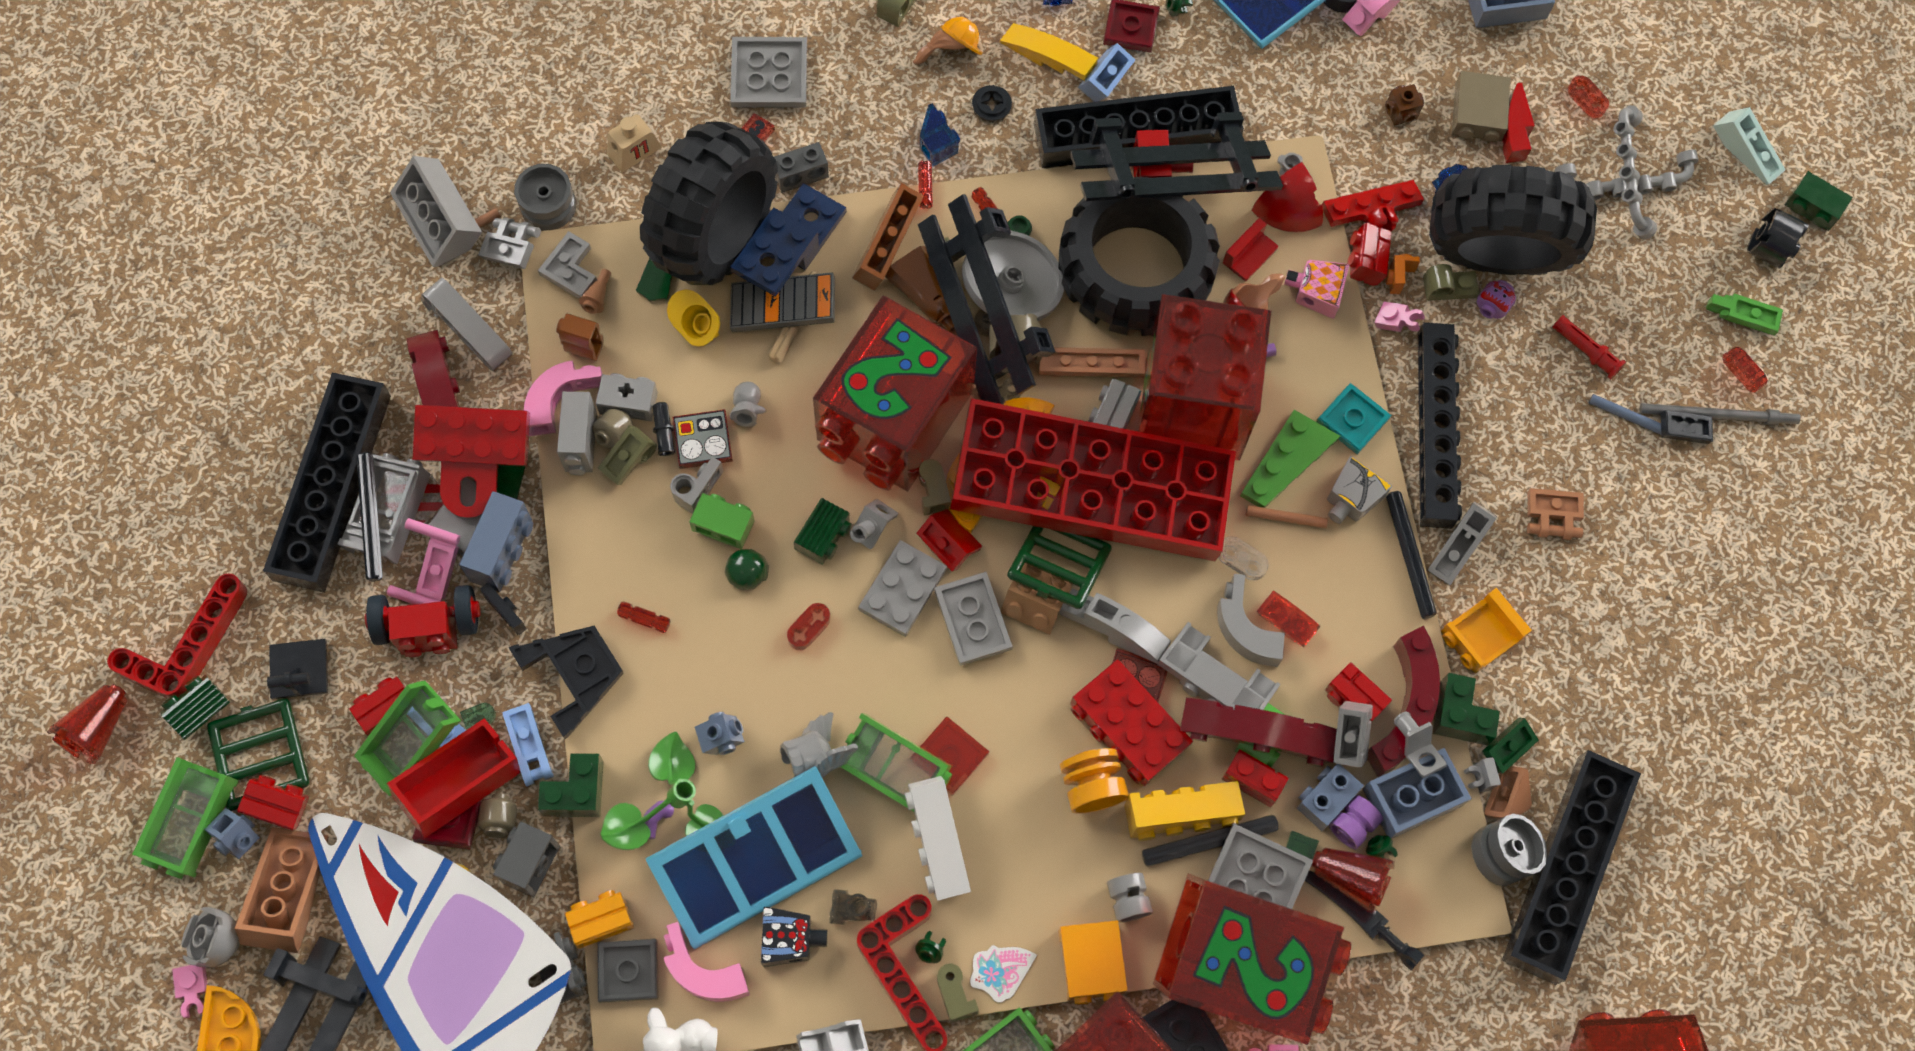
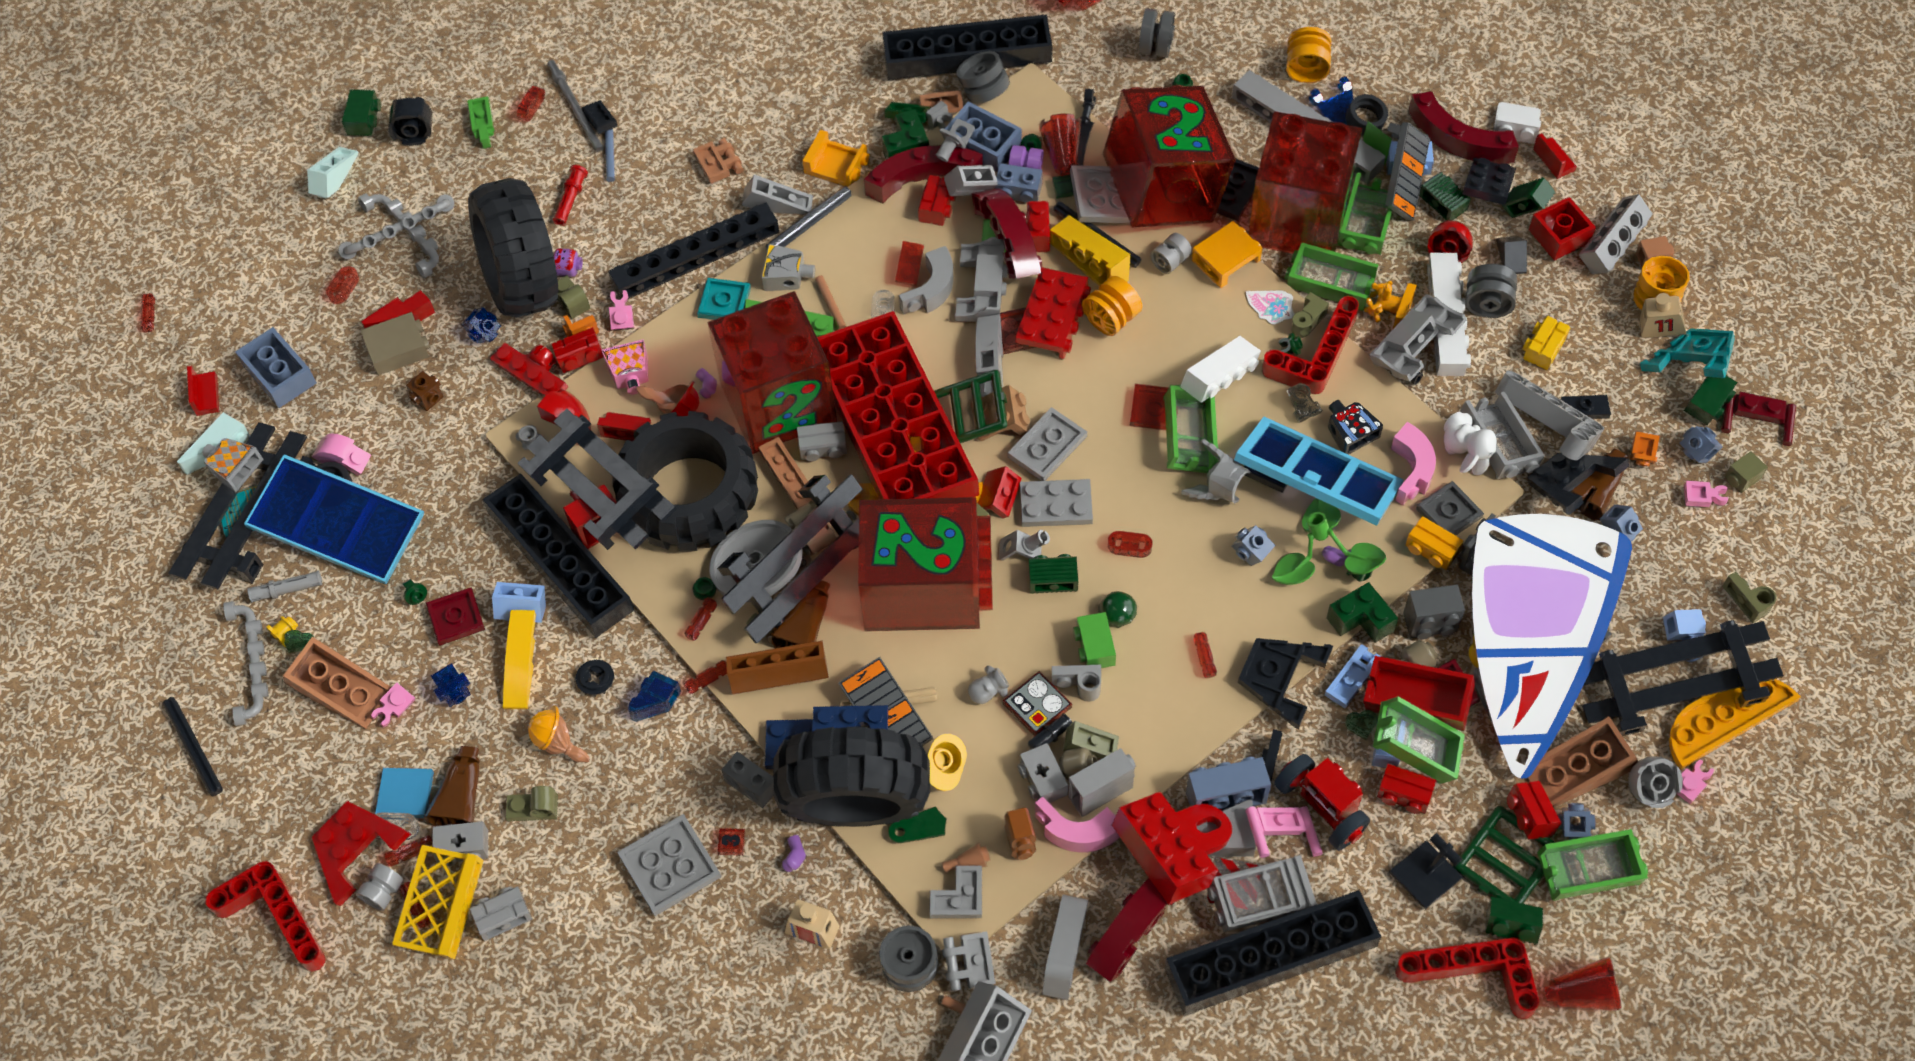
camera: 115 degrees left, 10 degrees down
(369, 517) = (1279, 887): axle -> none

